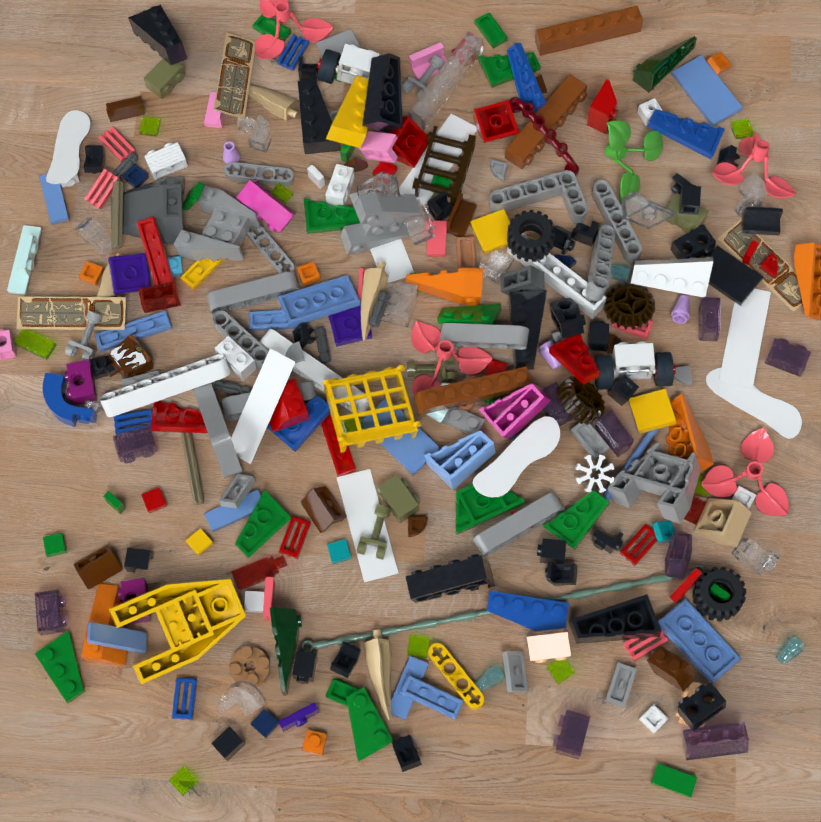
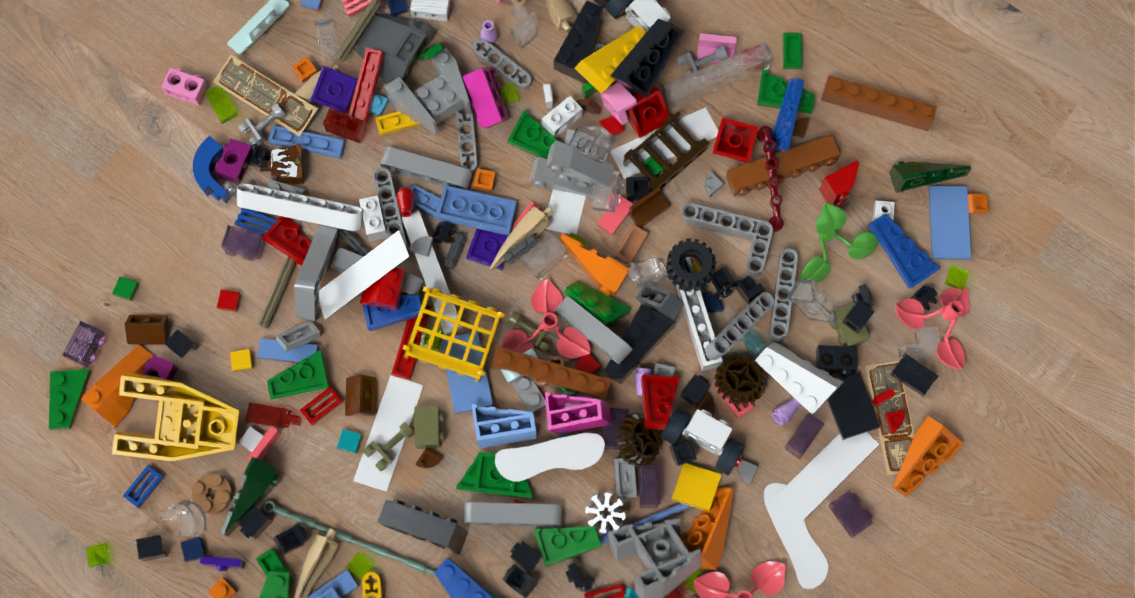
camera: 30 degrees right, 5 degrees up
(114, 502) = (194, 282): green tile -> none
(117, 637) = (123, 405): medium blue tile -> none
(255, 327) = (405, 200): none -> red cone
(491, 231) = (666, 234): yellow tile -> none
(567, 318) = (677, 357): black brick -> none

